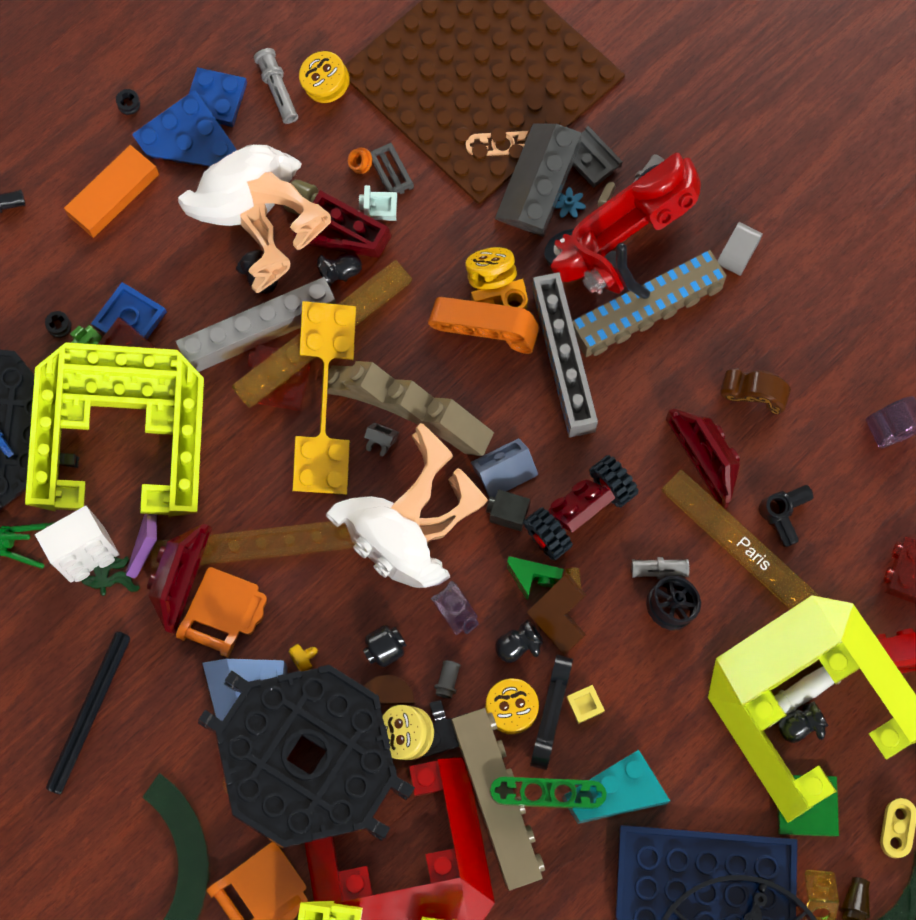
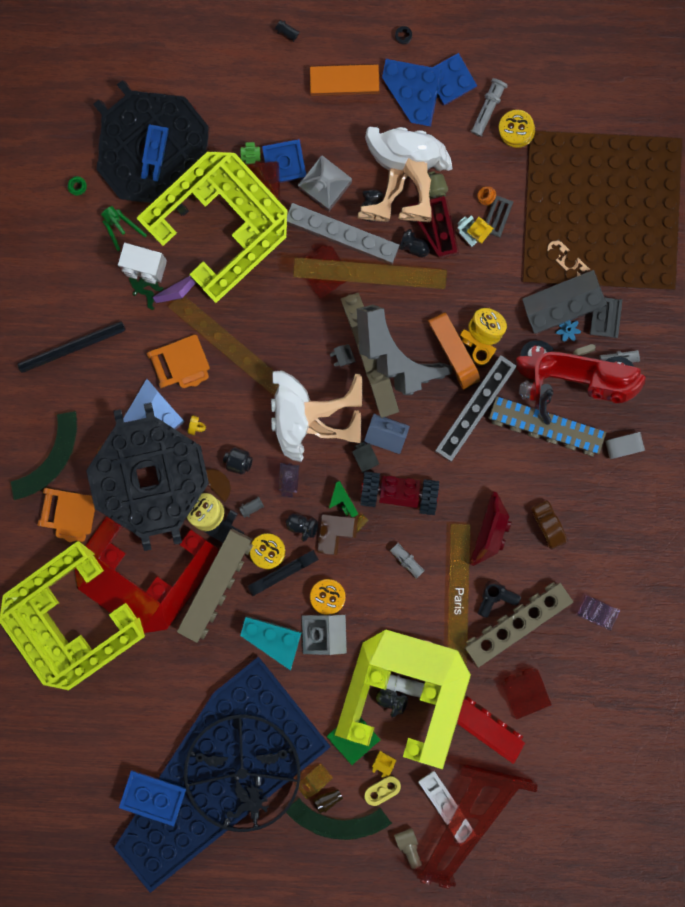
camera: 50 degrees right, 15 degrees up
(66, 324) = (243, 123): black bush -> none
(176, 574) = (175, 323): dark red wedge -> none
(190, 296) = (325, 183): none -> light grey piece
(319, 460) = (368, 278): yellow hinge -> none
(387, 192) = (480, 230): none -> yellow tile
(434, 378) = (378, 344): none -> dark grey arch
(548, 788) = (235, 611): green beam -> none
(585, 704) = (302, 585): light yellow tile -> none
(623, 687) = (327, 596): none -> light orange head
(661, 729) = (324, 634): none -> light grey slope
(674, 602) = (393, 584): black wheel -> none
(848, 449) = (560, 601): none -> dark tan brick
(869, 797) = (384, 764): none -> yellow tile

